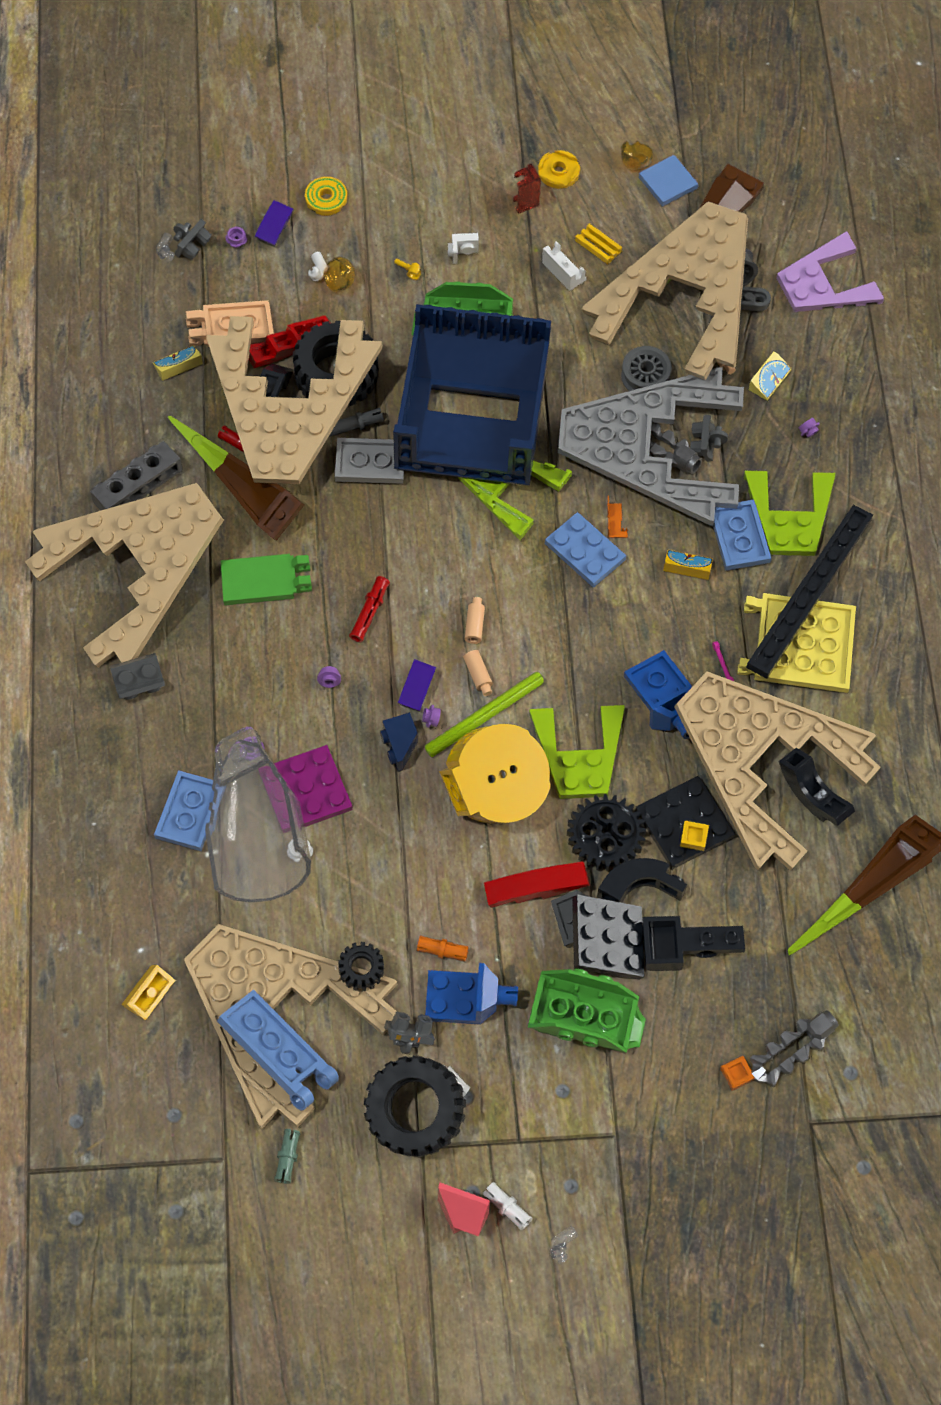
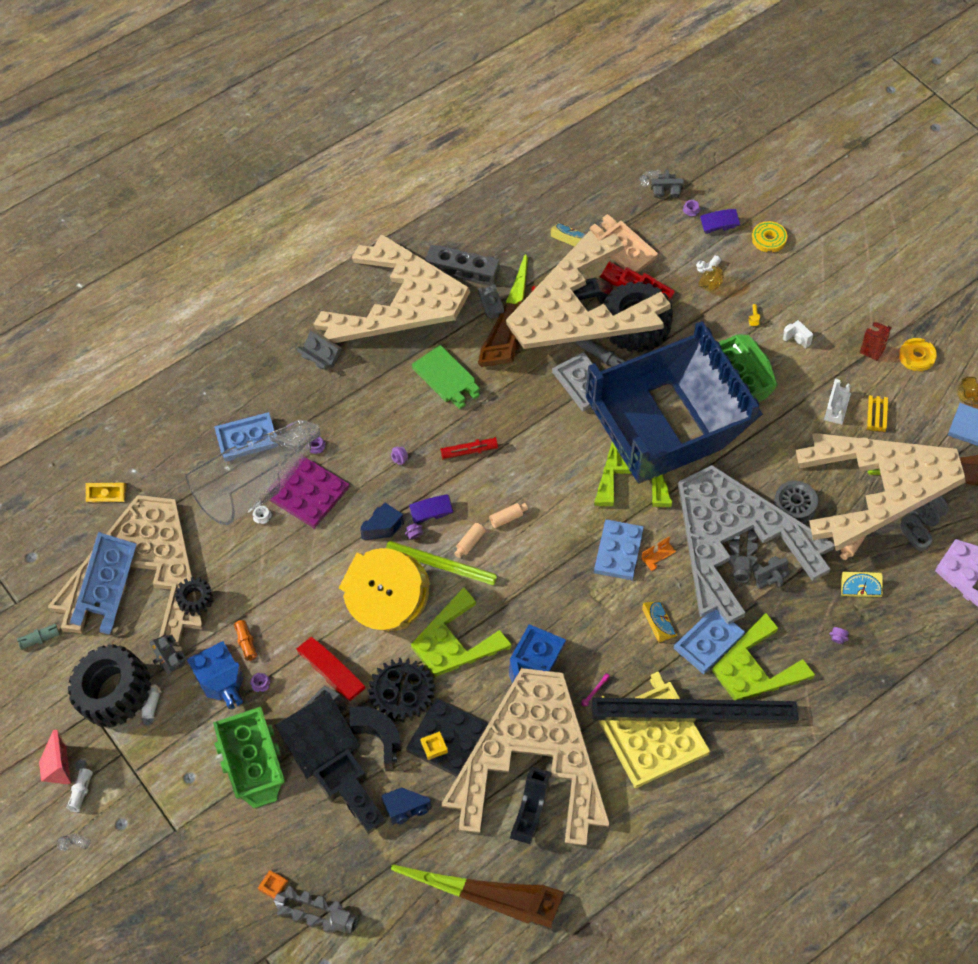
camera: 60 degrees right, 5 degrees down
(209, 480) = (491, 301): none -> dark grey hips
(502, 955) = (260, 677): none -> medium lavender plate
(732, 902) = (404, 804): none -> dark blue slope

